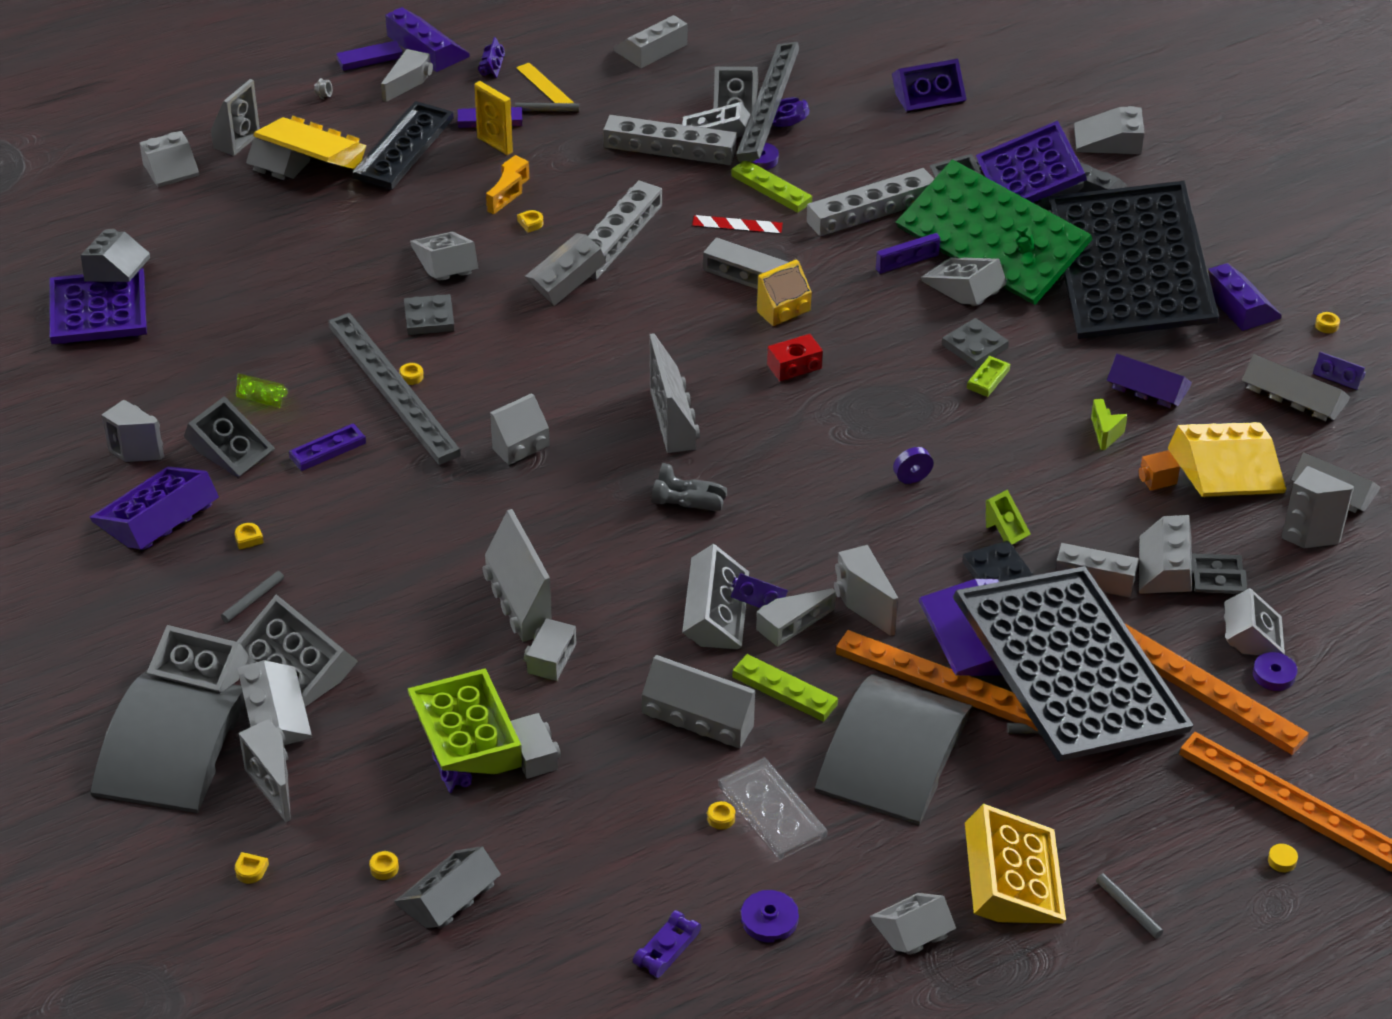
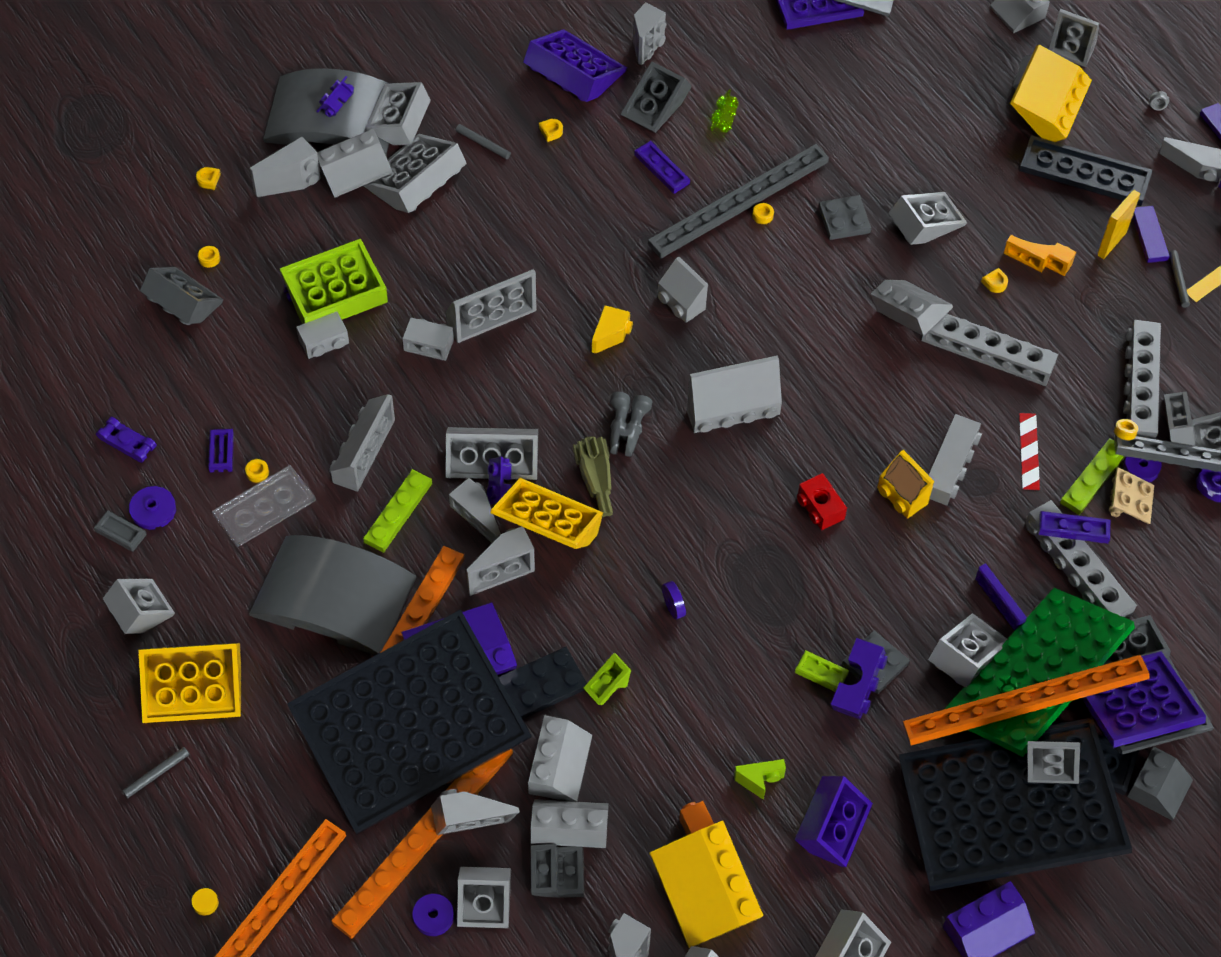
camera: 85 degrees right, 15 degrees up
(169, 709) = (340, 91): none -> dark purple hinge
(557, 496) = (611, 329): none -> yellow slope
(688, 853) = (221, 466): none -> dark purple tile
(735, 146) = (1126, 429): none -> yellow tile
(749, 516) = (594, 464): none -> olive piece
(801, 949) = (120, 531): none -> dark grey tile
(805, 165) = (1131, 496): none -> tan hinge
(814, 543) = (549, 514): none -> yellow slope
(841, 191) = (1074, 527): none -> dark purple tile
(991, 332) = (854, 698): none -> dark purple arch
(1042, 226) = (1026, 700): none -> orange plate
(1103, 208) = (1053, 762): none -> light grey slope
(1178, 621) = (468, 811): none -> light grey slope

